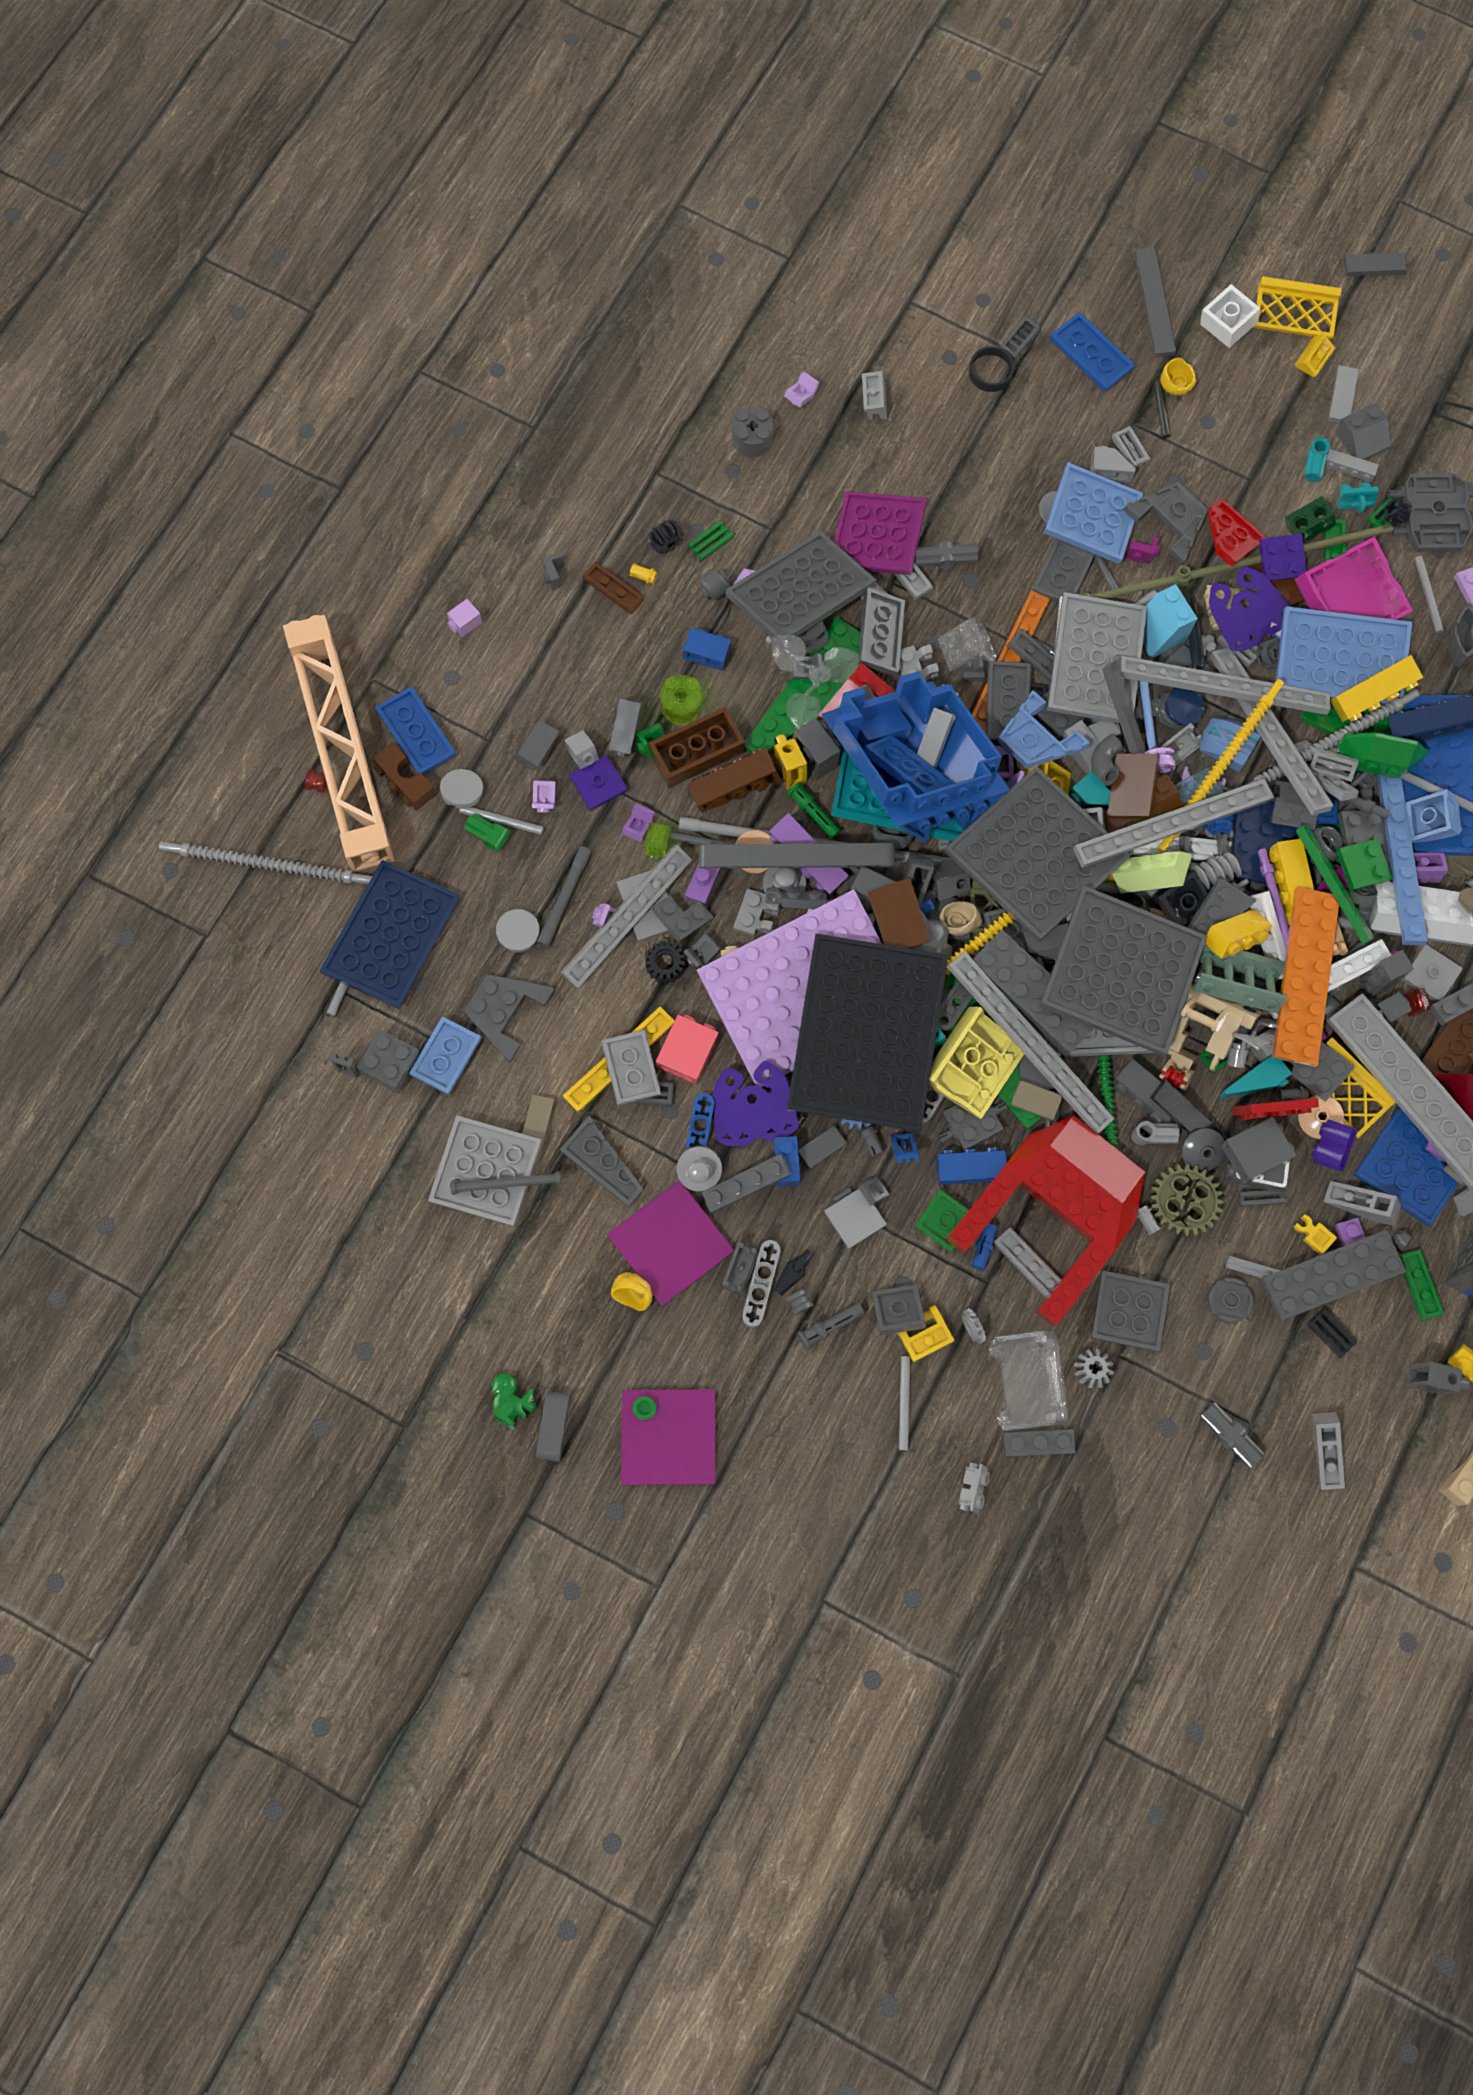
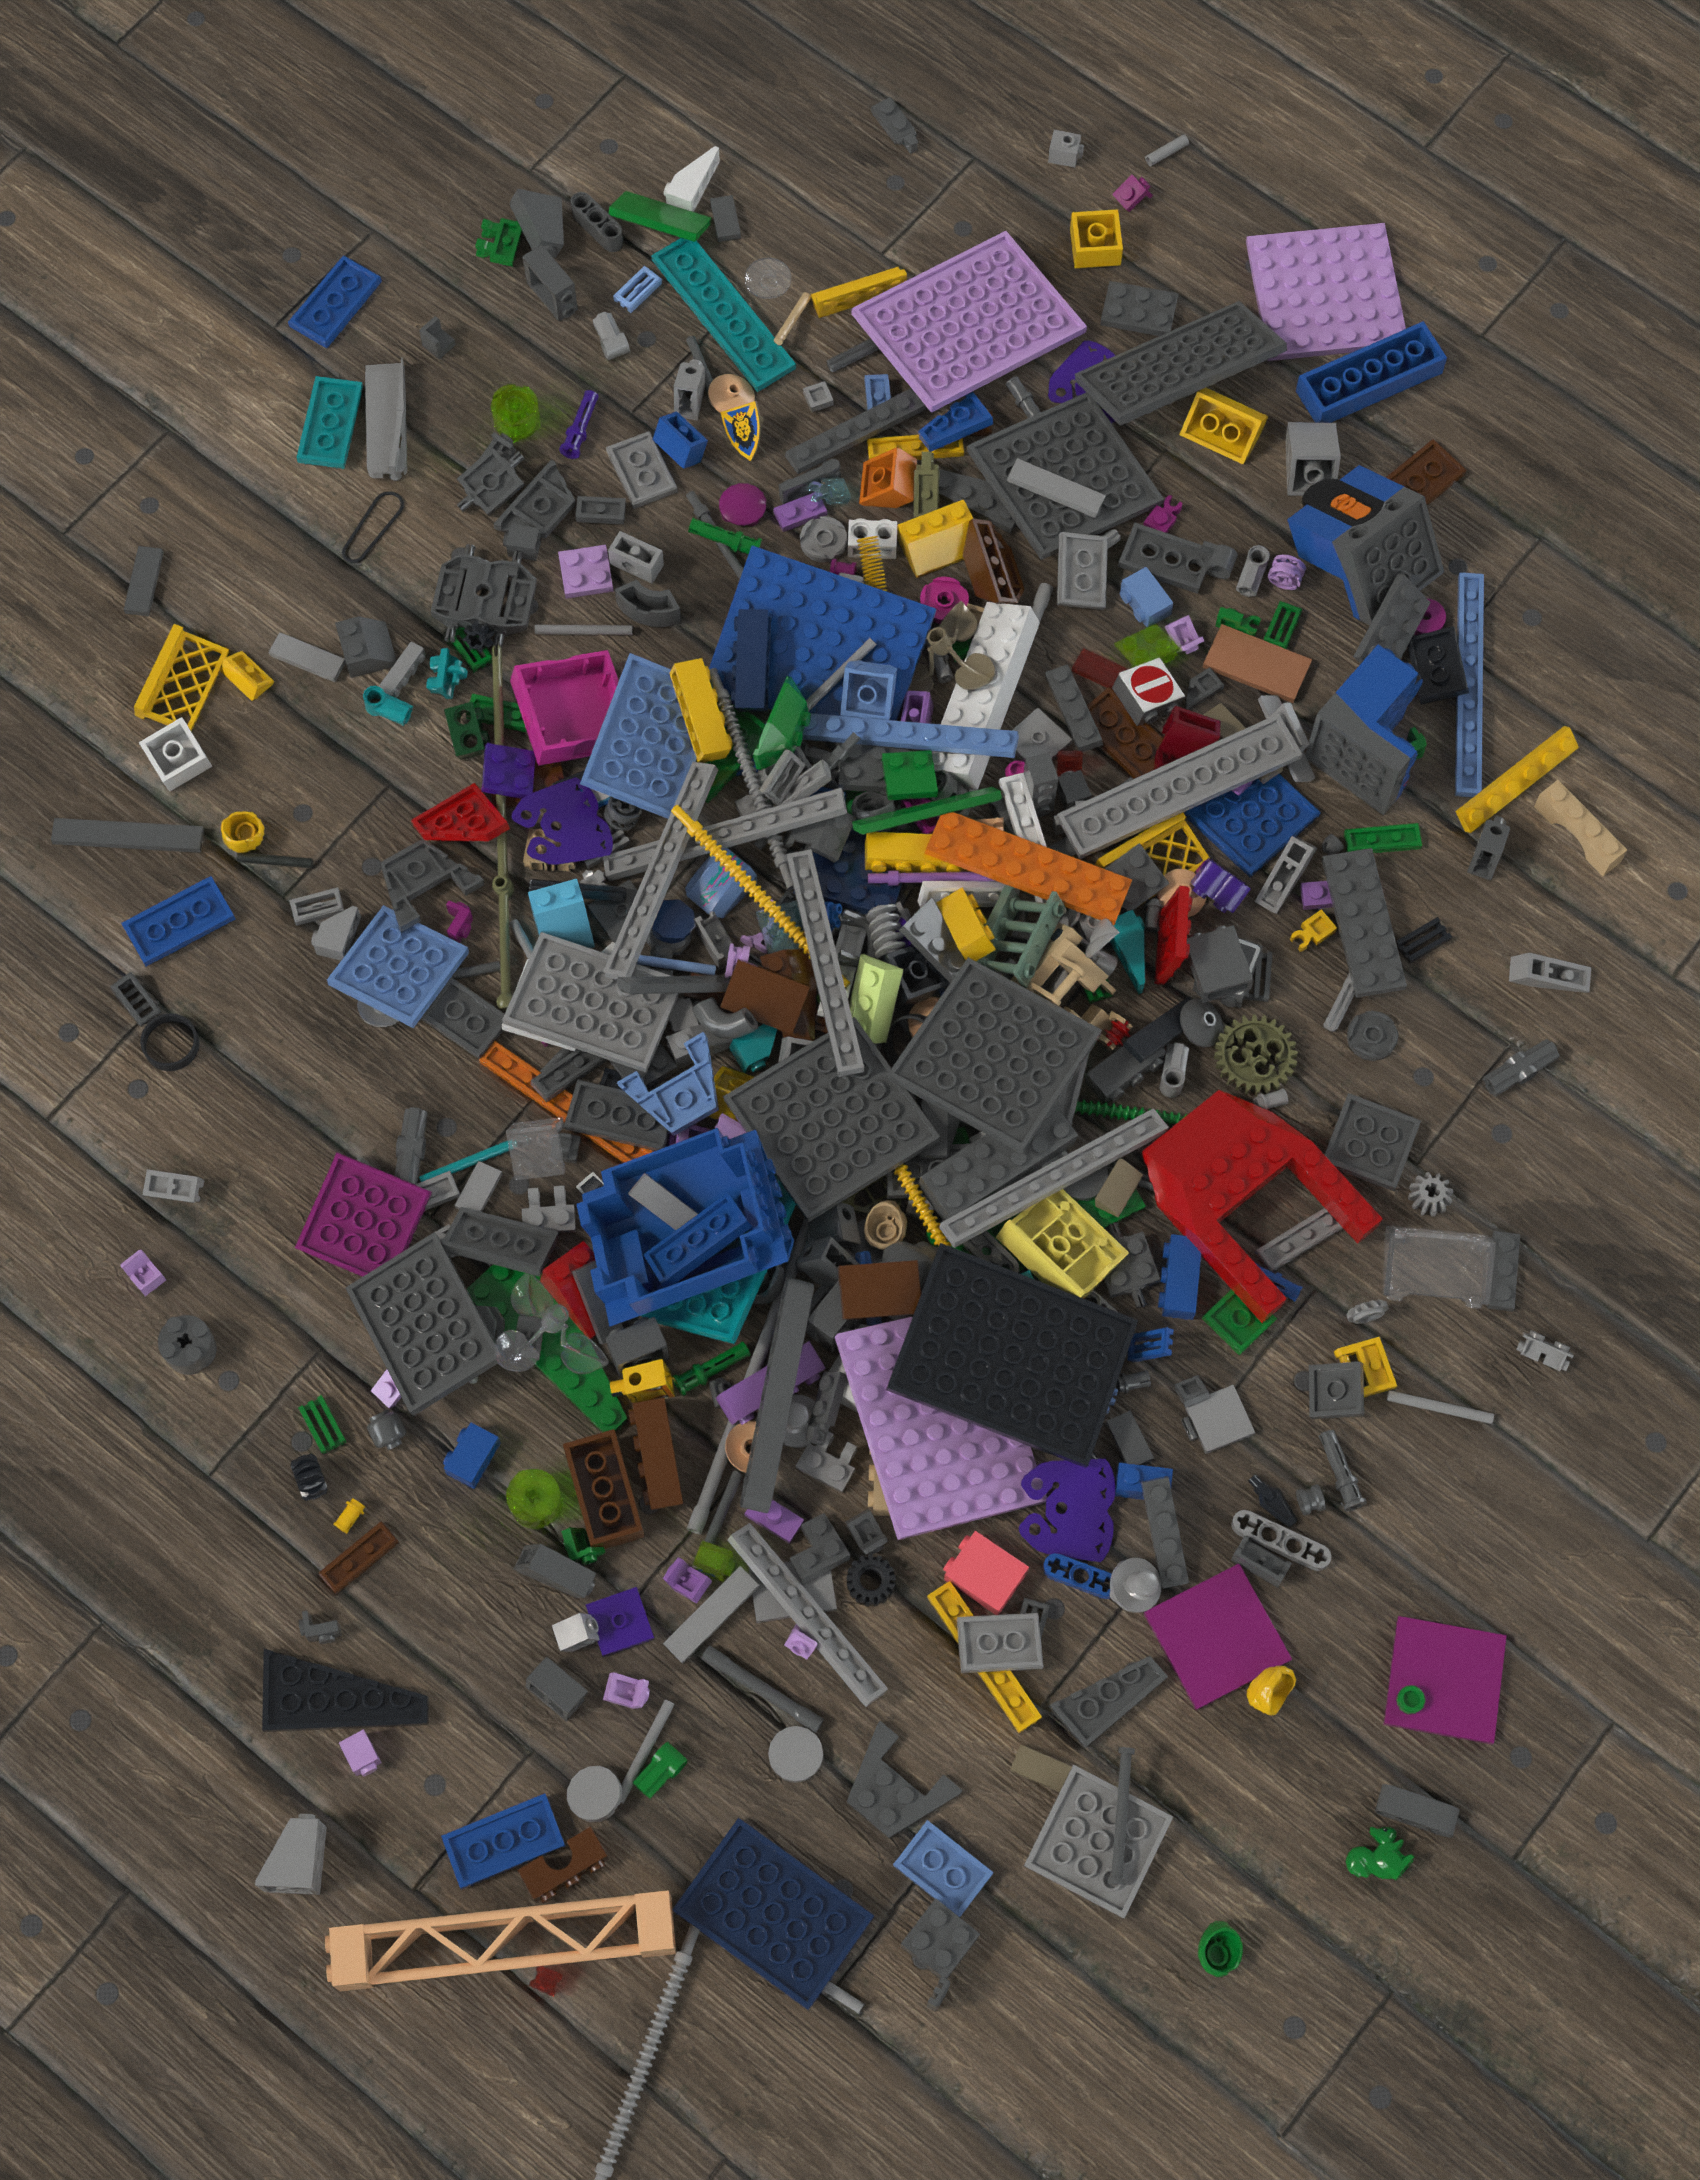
camera: 75 degrees left, 5 degrees down
(377, 588) = (296, 1858): none -> light grey slope
(408, 1280) = (1220, 1949): none -> green hair
(501, 584) = (322, 1698): none -> black wing
(615, 847) = (711, 1614): none -> light grey tile
(924, 612) = (479, 1187): none -> light grey tile
(943, 598) = (468, 1161): none -> teal bar

